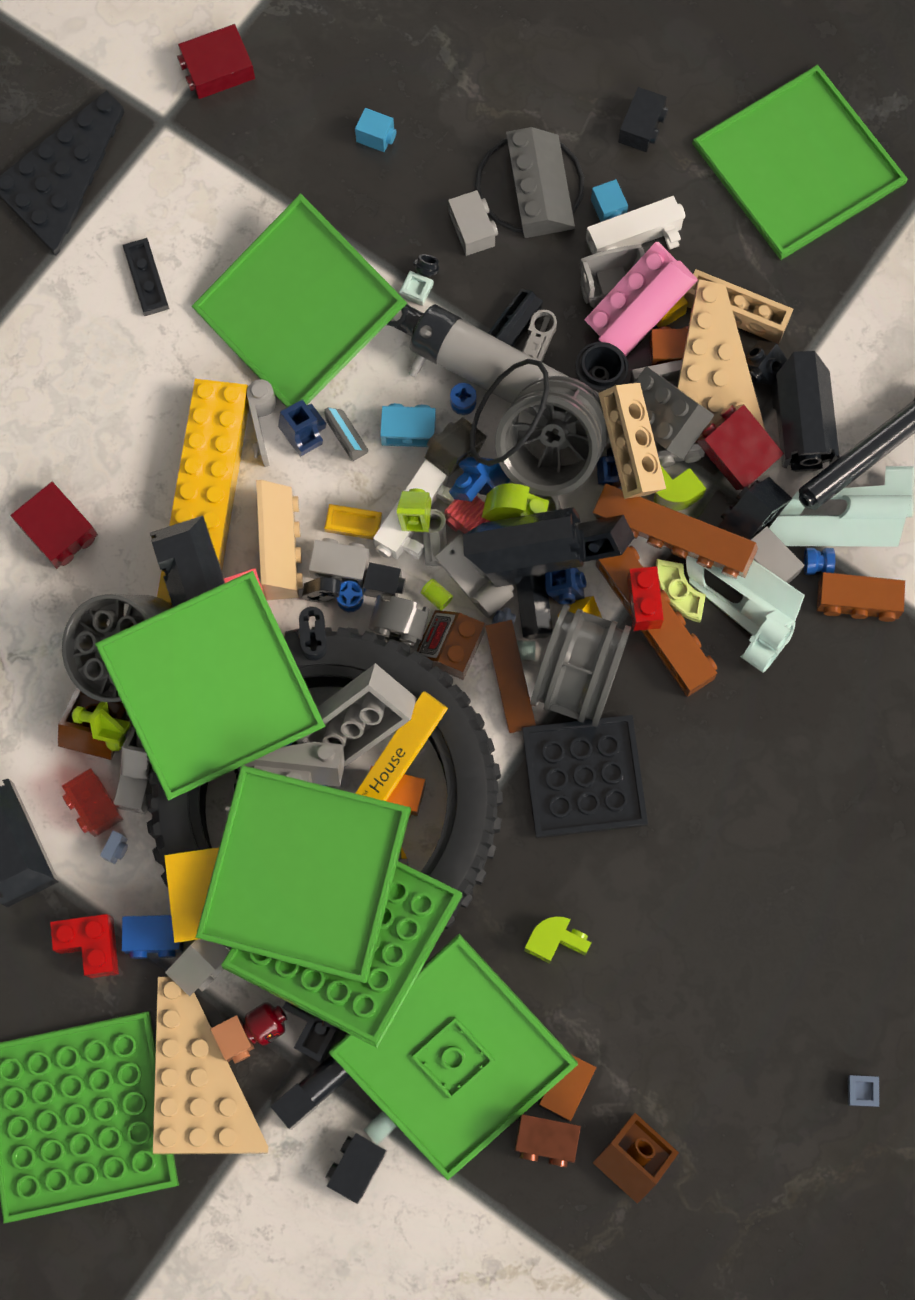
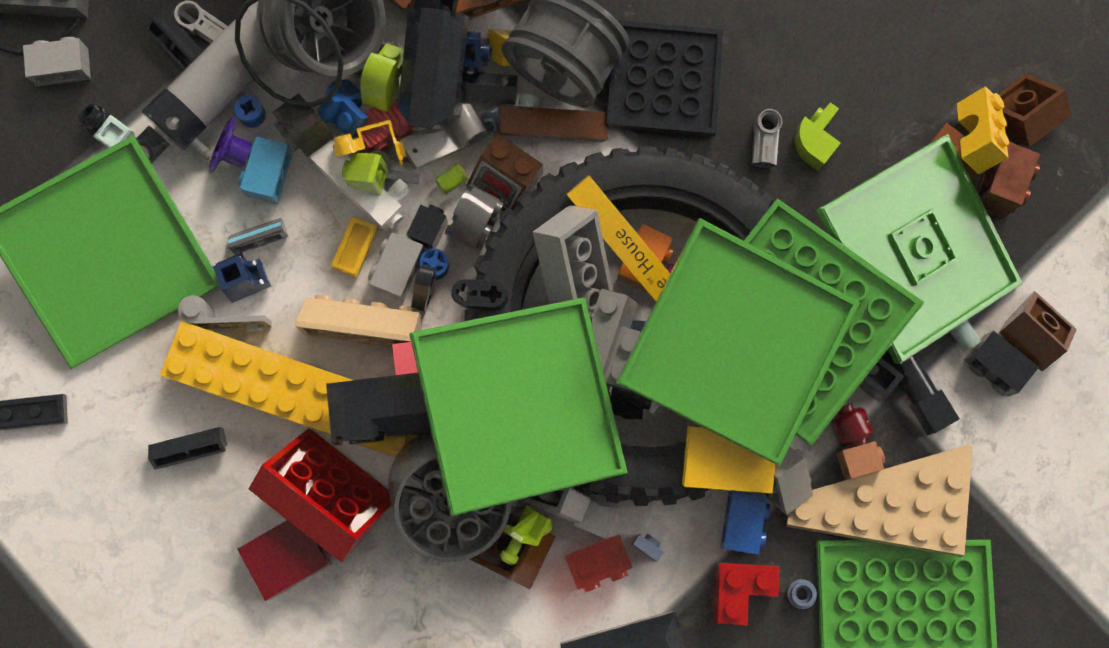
camera: 85 degrees left, 5 degrees up
(86, 1001) = (810, 597): none -> sand blue plate
(111, 541) = (322, 493): none -> red slope
(137, 420) = (187, 448): none -> black piece
(399, 1204) = (1038, 331): none -> reddish brown slope
(419, 389) = (233, 149): none -> dark purple wheel
(440, 490) = (346, 144): none -> yellow piece
(538, 888) = (766, 141): none -> light grey piece
(575, 1105) = (985, 121): none -> yellow arch

